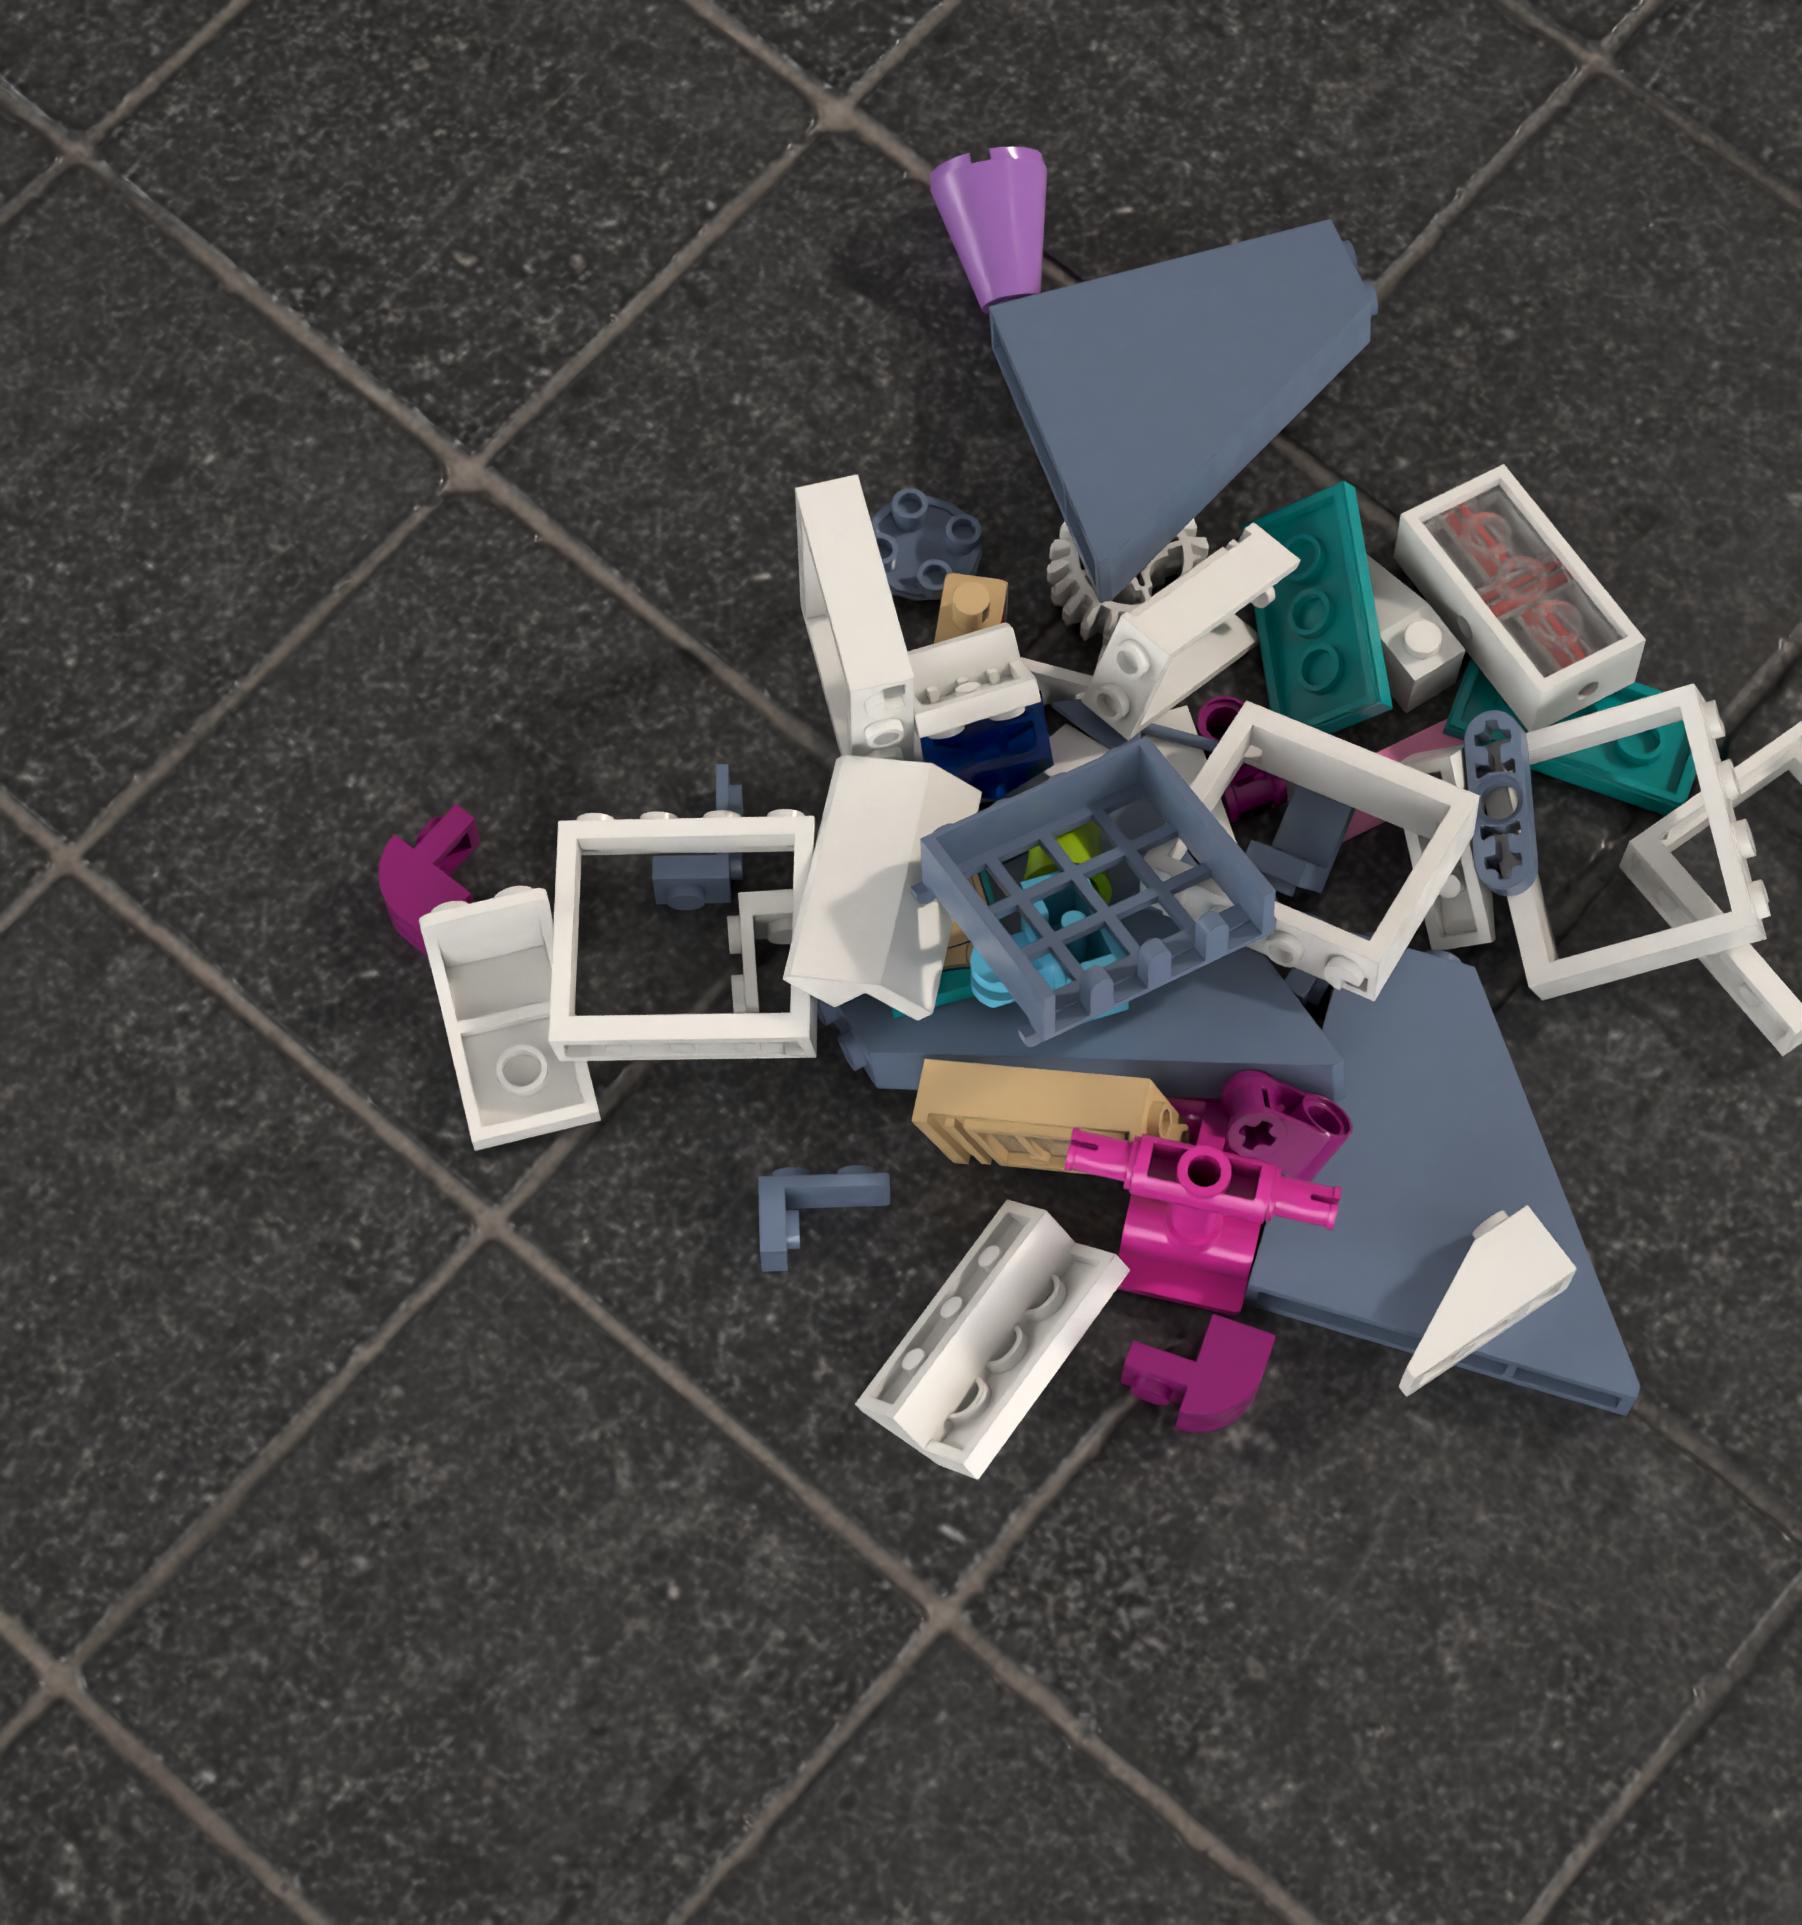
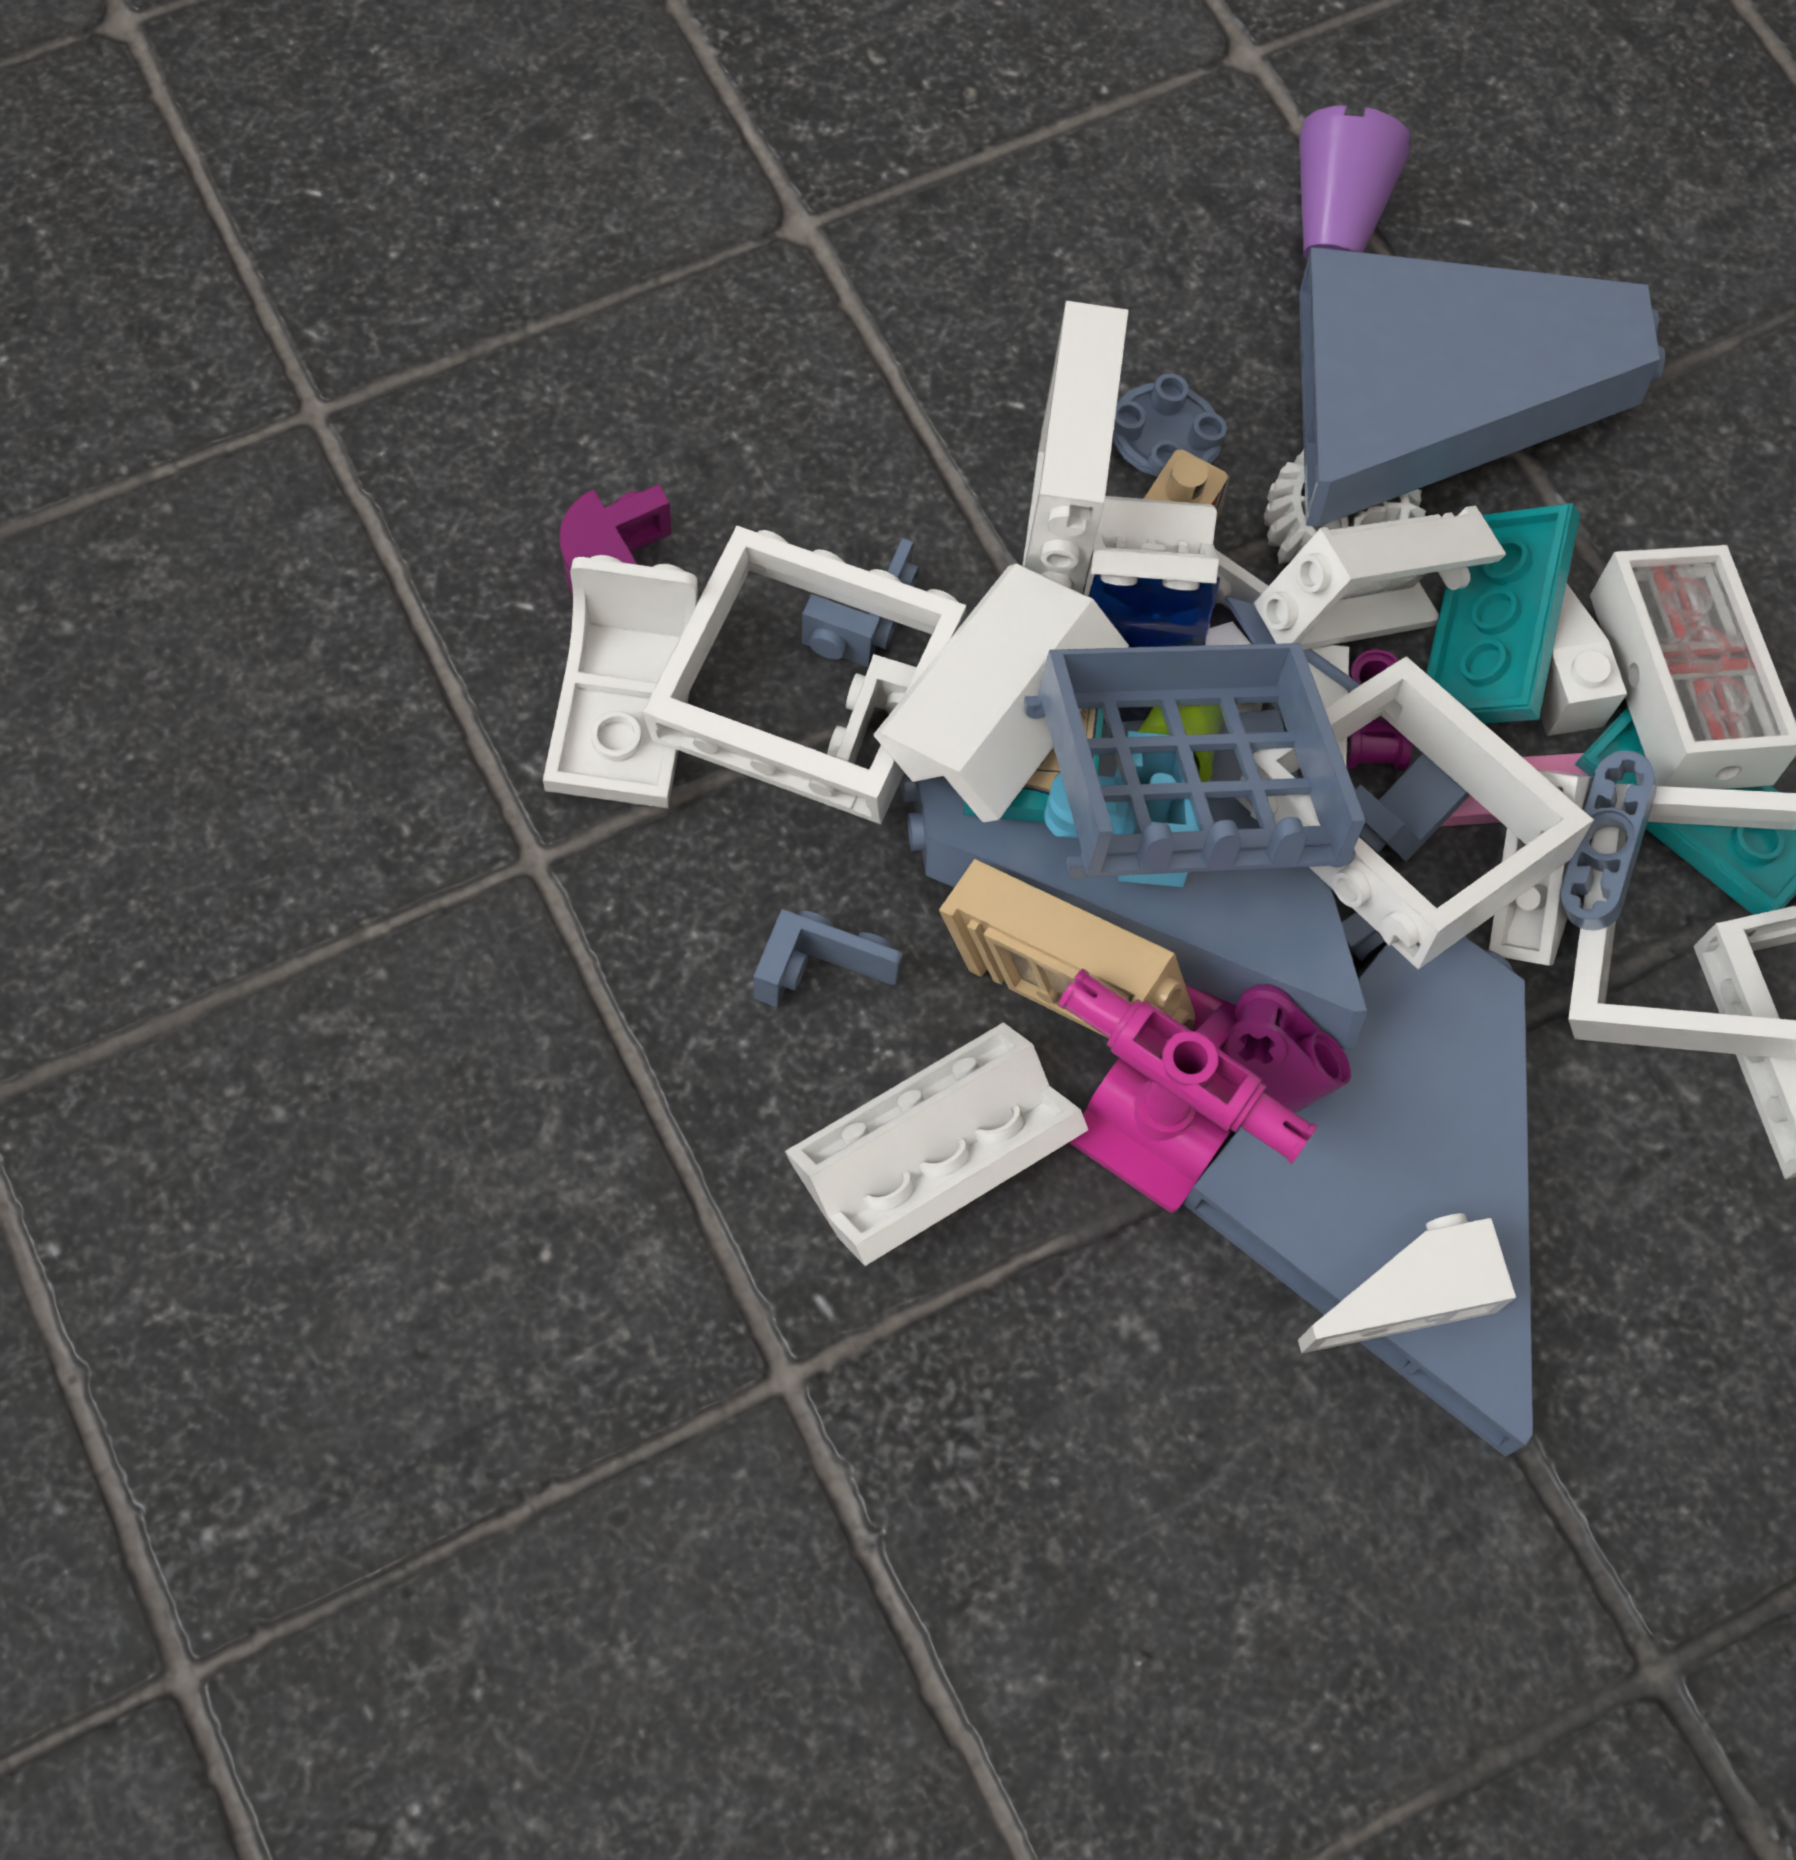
camera: 15 degrees right, 0 degrees up
(1214, 1387) = (1120, 1270): magenta brick -> none

